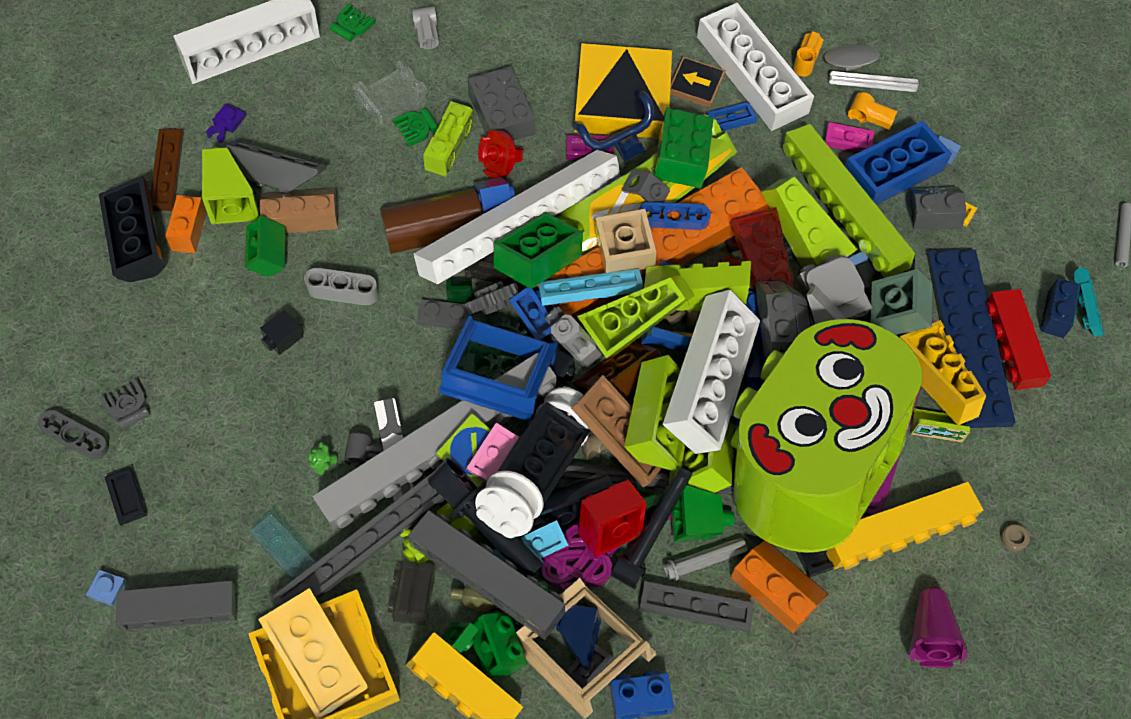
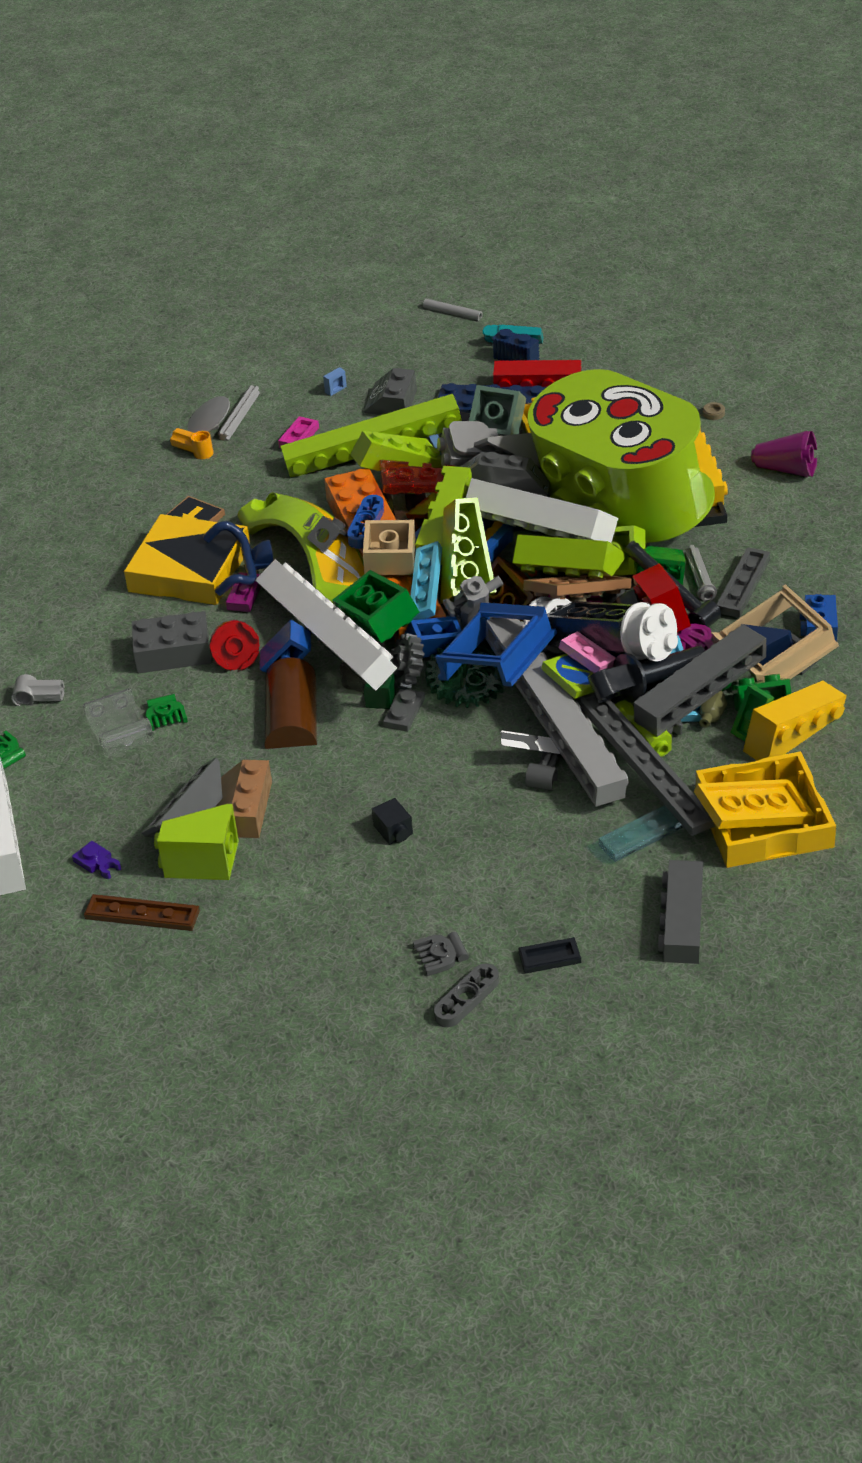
camera: 70 degrees left, 20 degrees down
(105, 588) = (651, 971): medium blue plate -> none
(131, 231) = (223, 926): black brick -> none
(186, 224) = (230, 888): orange brick -> none
(265, 246) = (284, 824): green brick -> none
(321, 458) = (545, 801): bright green plant -> none
(332, 279) = (350, 774): light grey beam -> none
(413, 593) = (699, 747): clear smoke brick -> none
(448, 139) = (197, 682): lime piece -> none
(683, 148) = (295, 500): green brick -> none
(734, 120) = (242, 489): blue tile -> none
(754, 66) = (196, 472): white brick -> none
(778, 585) = (736, 534): orange slope -> none
(866, 109) = (273, 419): light orange piece -> none
(899, 162) = (339, 399): blue brick -> none

